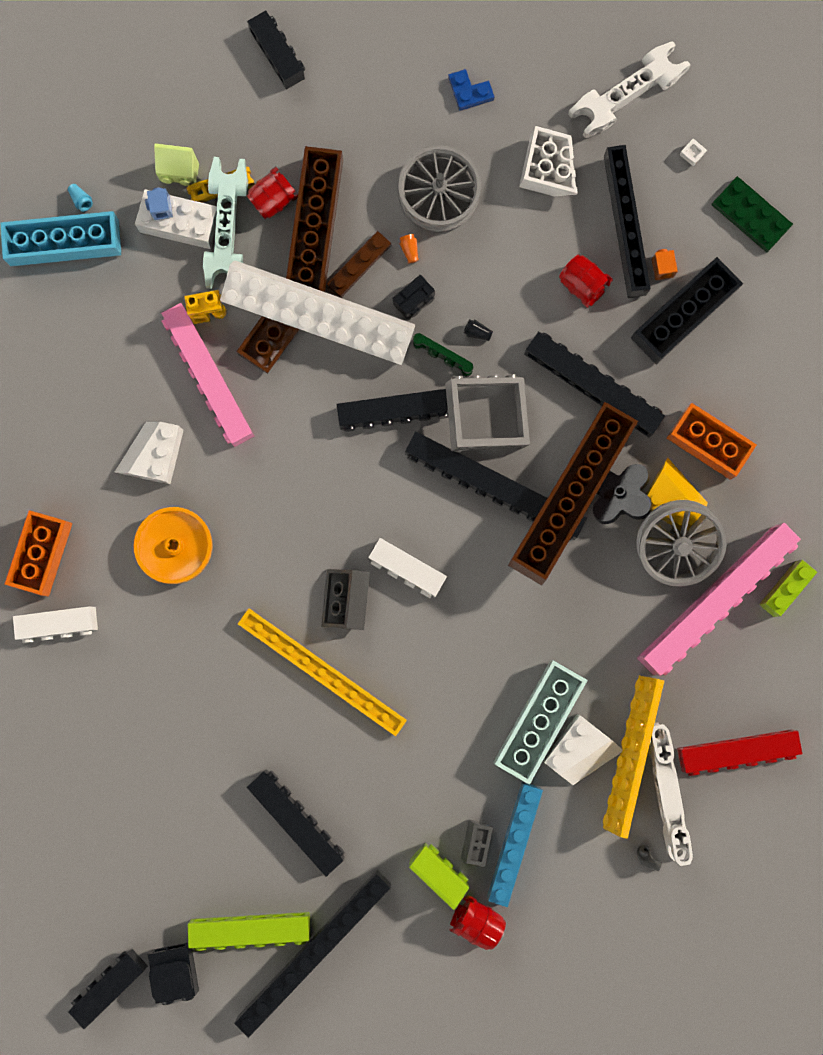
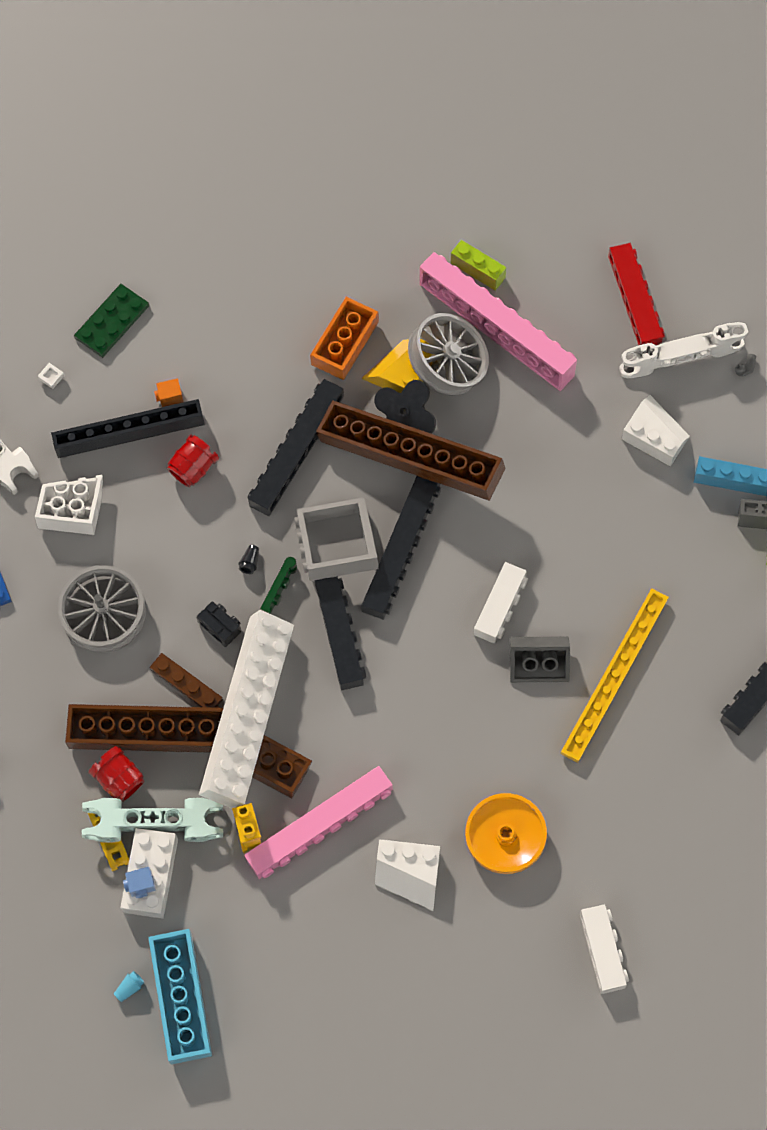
camera: 95 degrees left, 15 degrees down
(38, 553) = (531, 973): orange brick -> none
(176, 164) = (89, 880): yellowish green slope -> none
(409, 247) = (164, 634): orange cone -> none
(540, 721) = (634, 466): light aqua brick -> none
(633, 757) = (653, 381): yellow plate -> none
(686, 310) = (216, 368): black brick -> none

